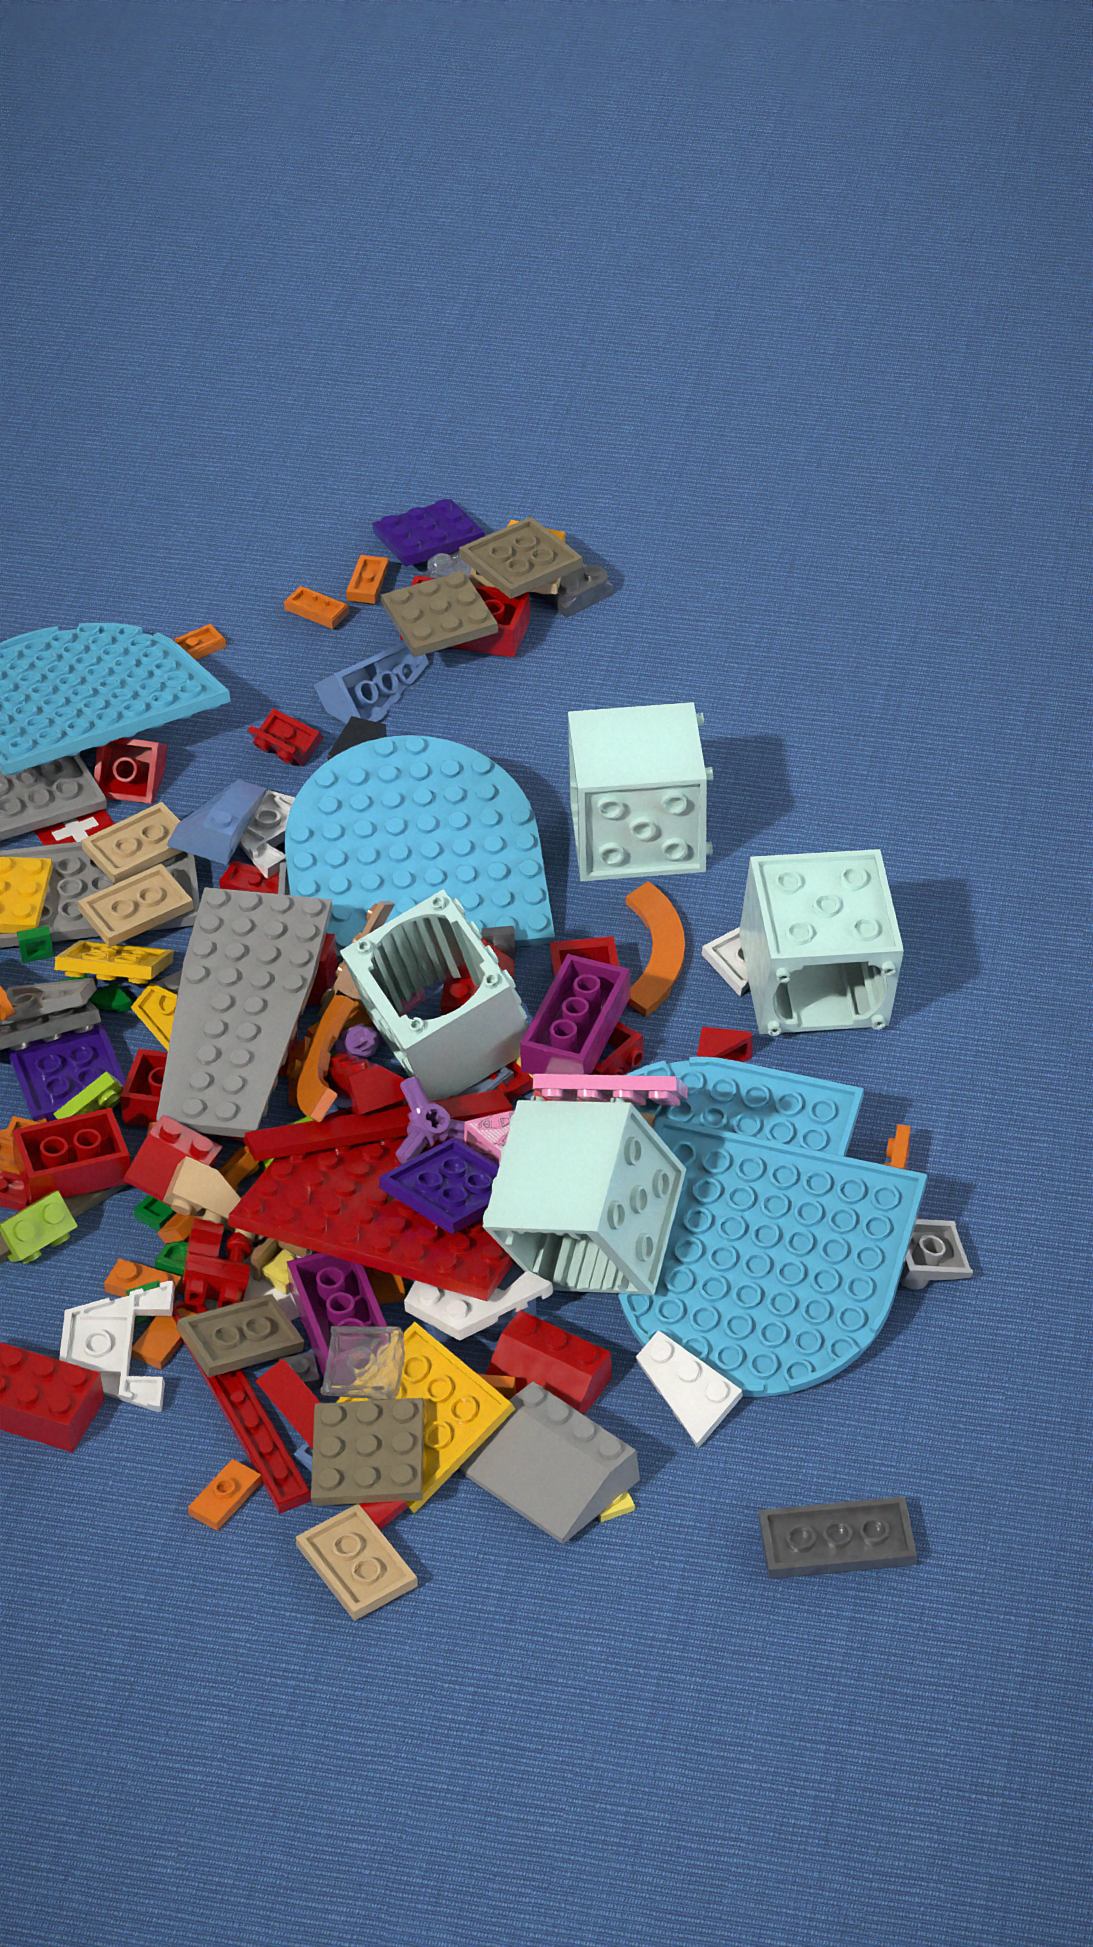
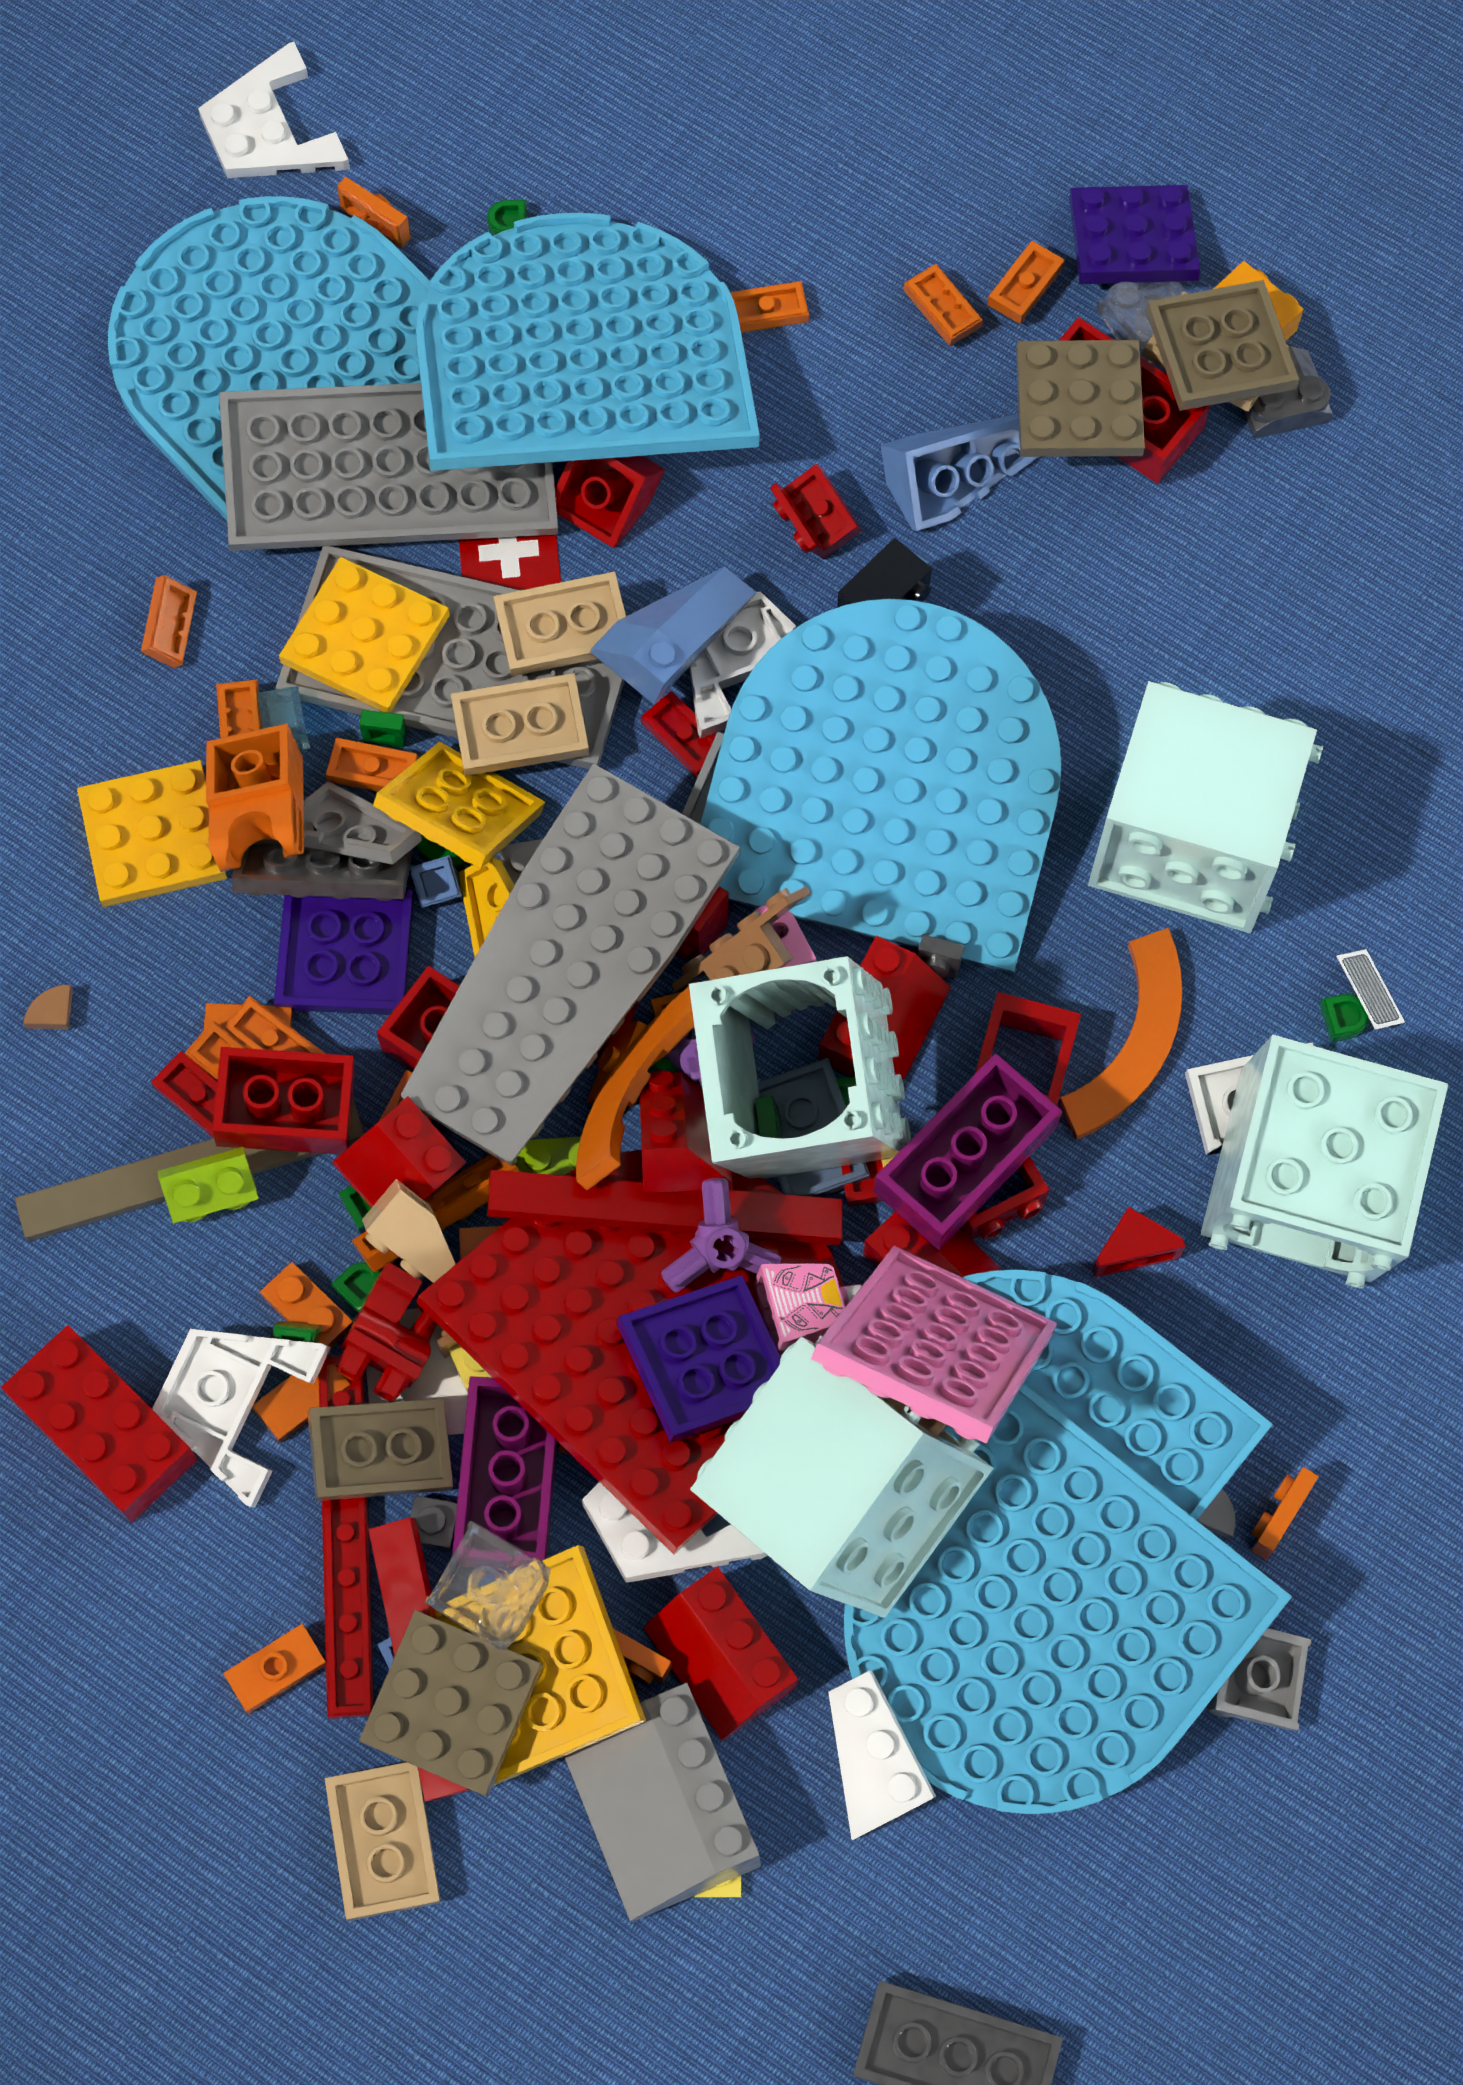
camera: 20 degrees right, 25 degrees up
(33, 969) = (366, 764): none -> orange plate
(98, 1095) = (343, 1026): lime plate -> none
(118, 1016) = (436, 881): none -> medium blue tile

